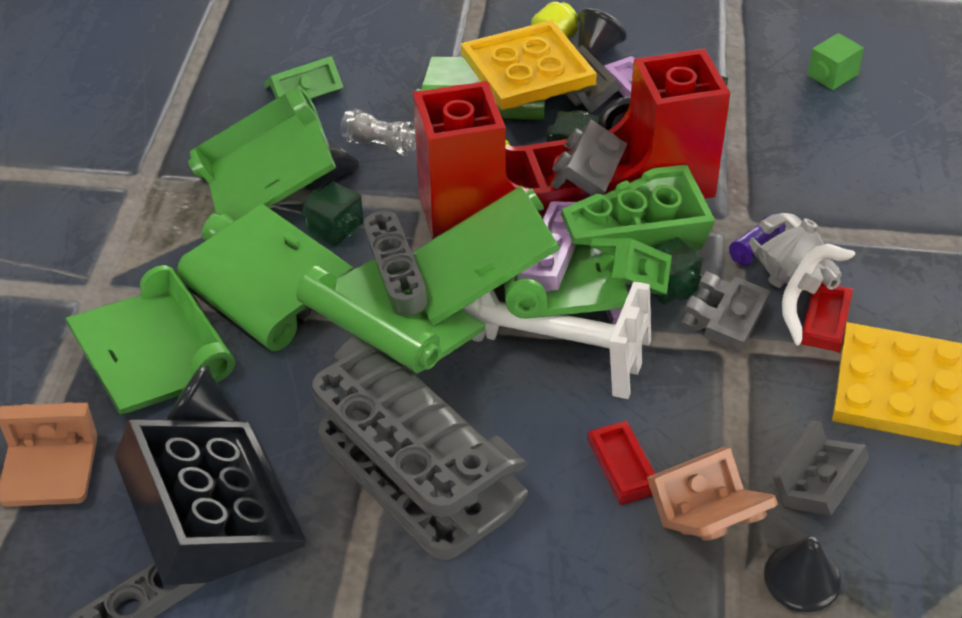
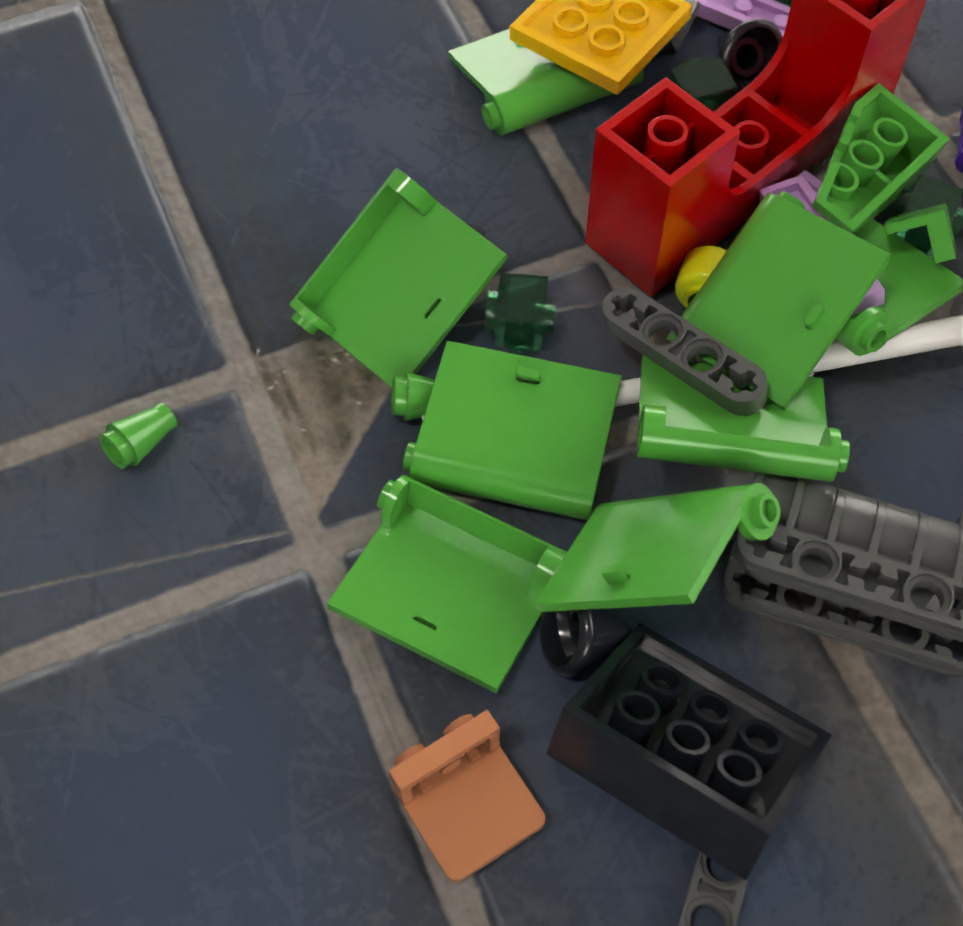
camera: 30 degrees left, 15 degrees up
(46, 185) = (134, 437): none -> bright green cone
(279, 355) = (656, 548): none -> bright green door
(315, 78) = (334, 149): bright green panel -> none
(364, 128) = (461, 182): clear piece -> none
(590, 159) = (783, 123): dark grey bracket -> none

